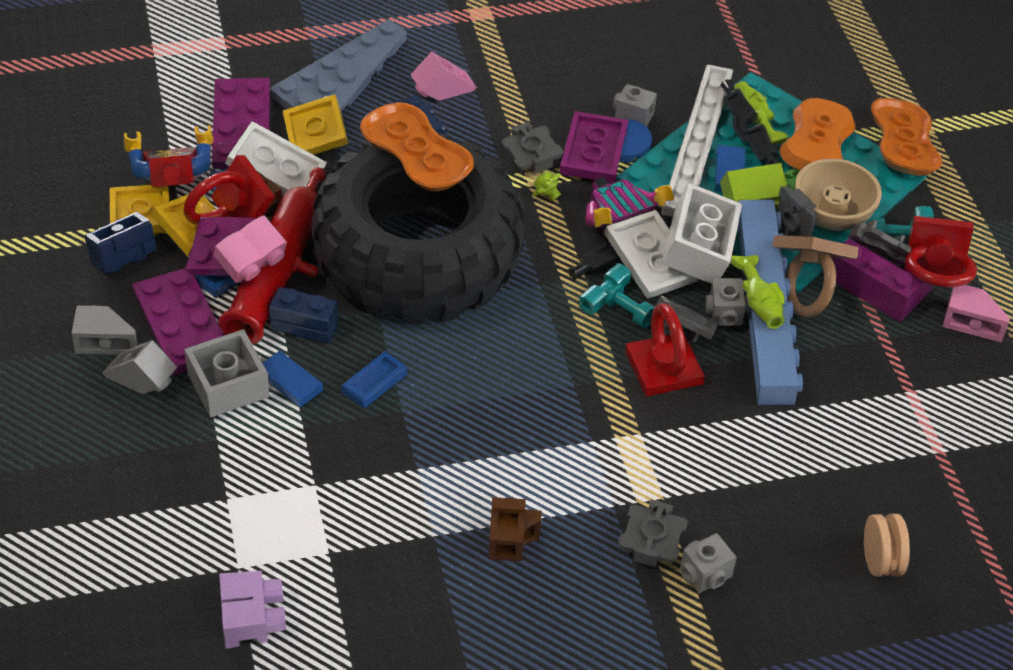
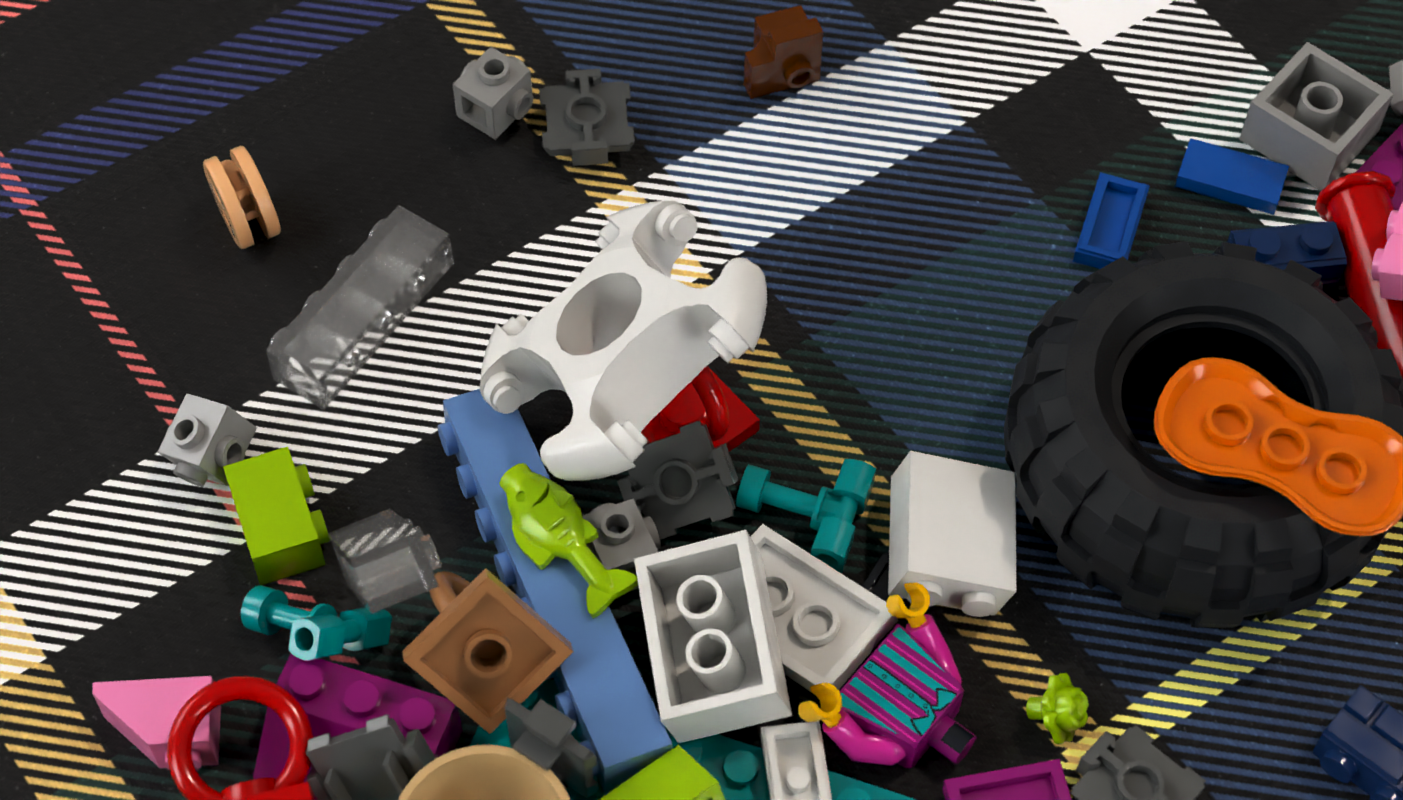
camera: 160 degrees right, 10 degrees up
(559, 254) = (953, 533): none -> white brick
(726, 305) = (623, 340): none -> white piece
(826, 470) = (359, 306): none -> clear brick
(853, 311) = (385, 559): none -> clear brick
(885, 310) = (317, 631): none -> teal bar
(900, 381) = (275, 514): none -> lime brick
(931, 419) = (205, 439): none -> light grey brick

